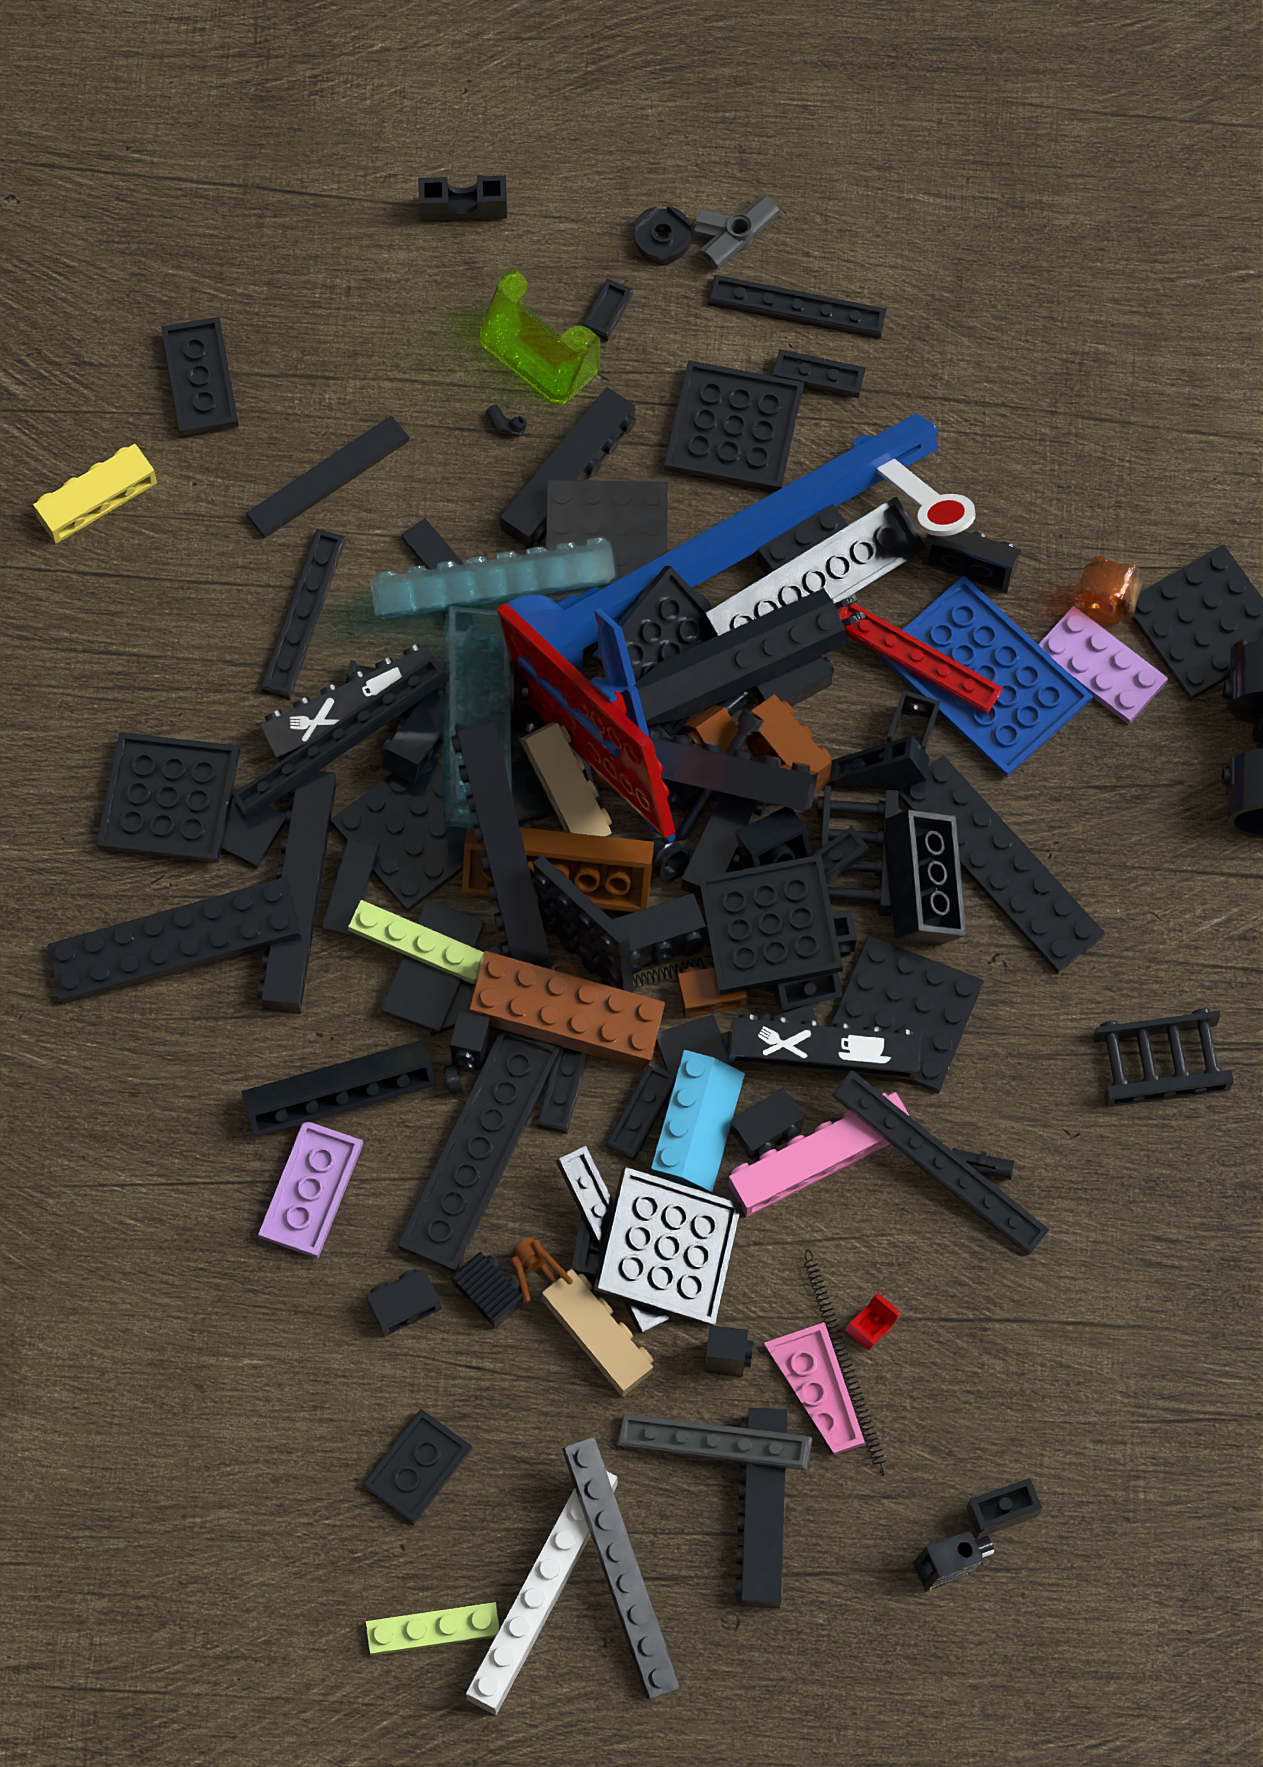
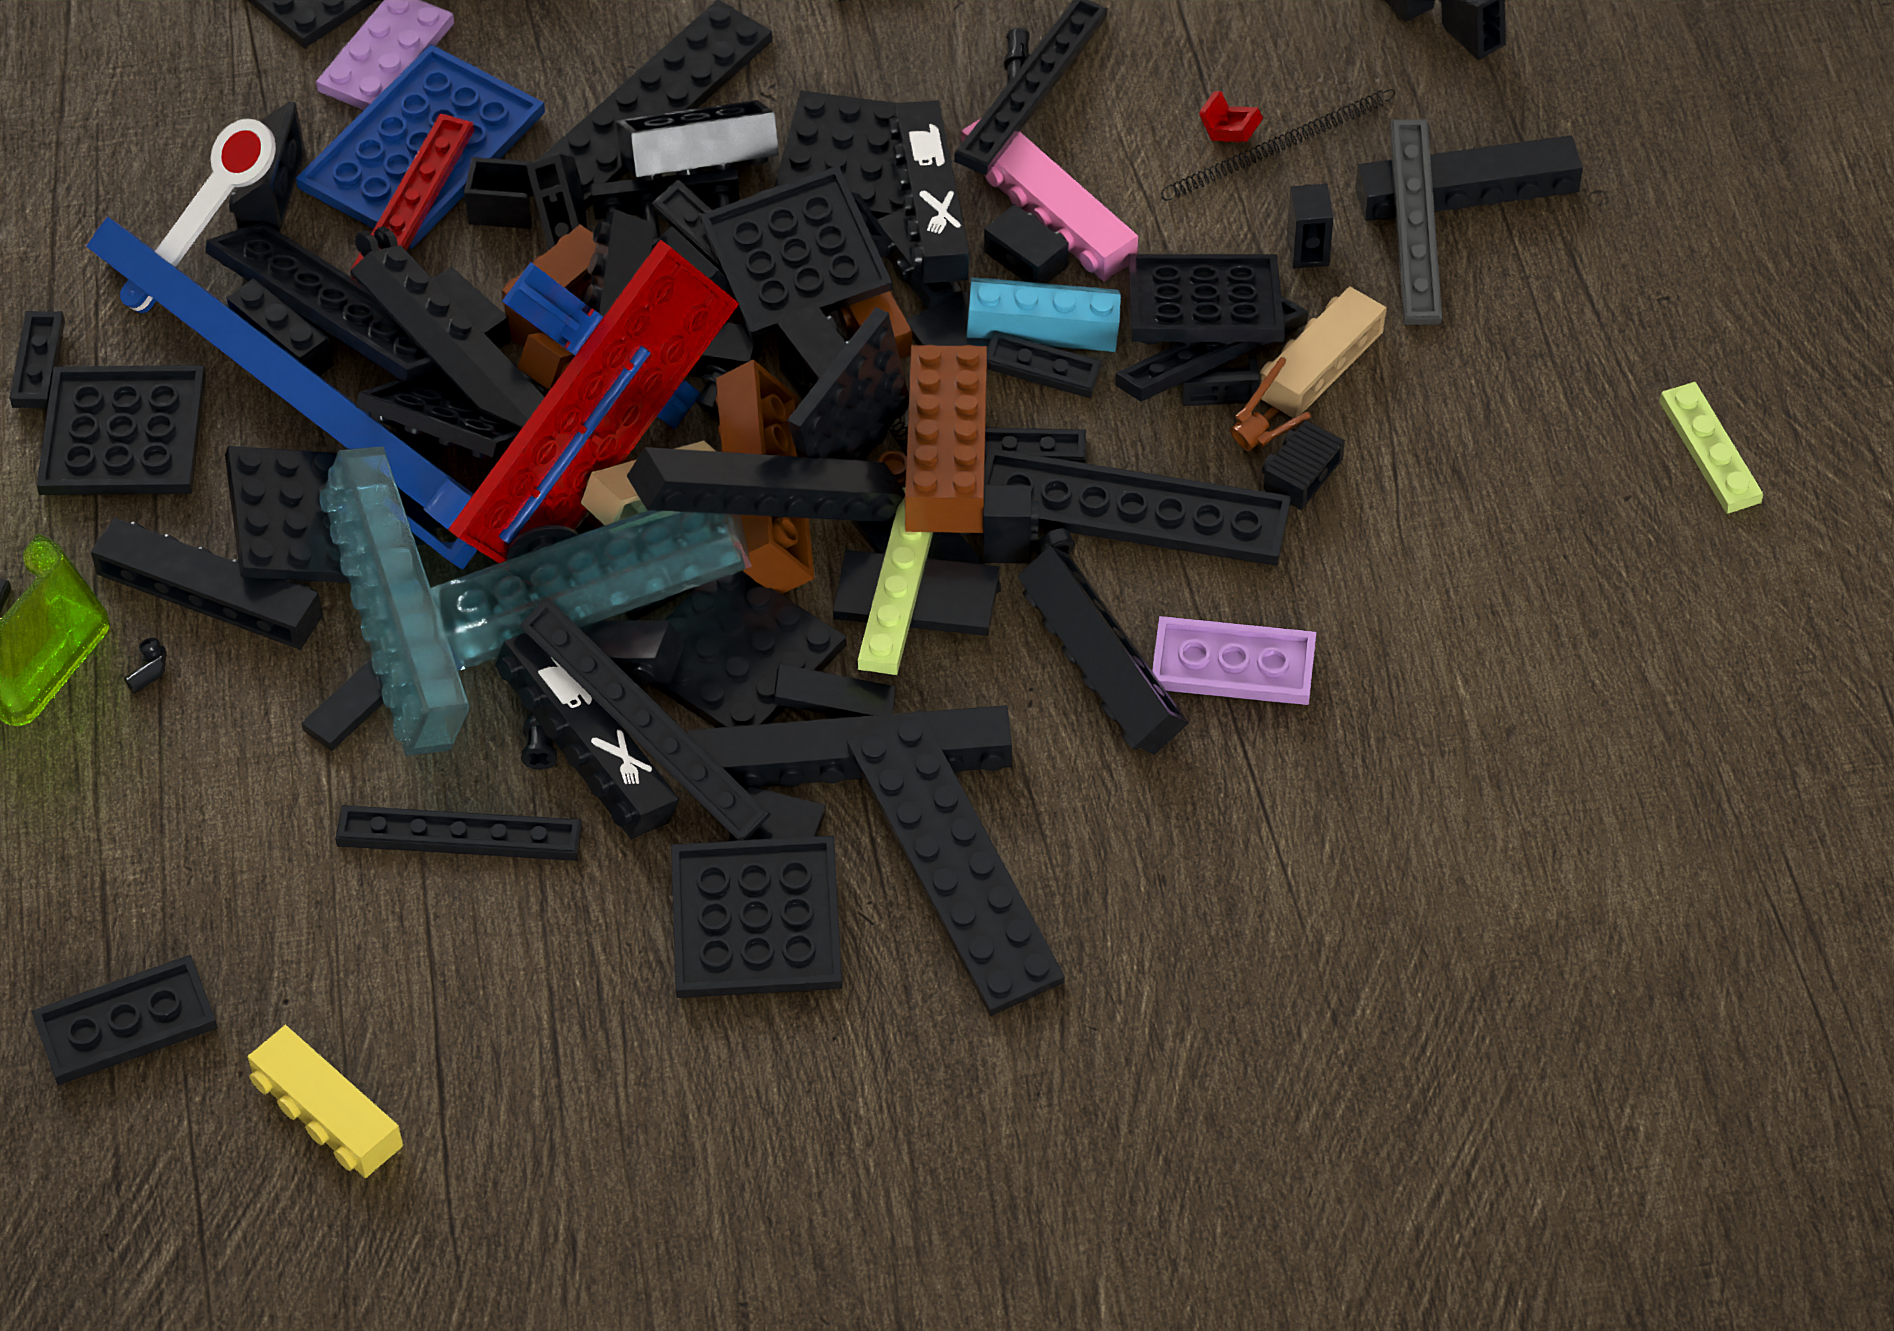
camera: 100 degrees left, 15 degrees down
(327, 477) = (255, 846): black tile -> none
(403, 1301) = (1345, 539): black brick -> none
(417, 1466) = (1531, 498): black tile -> none
(532, 1607) = (1631, 348): white brick -> none
(620, 1568) = (1586, 272): plate -> none
(816, 1378) = (1314, 154): bright pink wing -> none
(1105, 589) = (297, 40): clear orange brick -> none

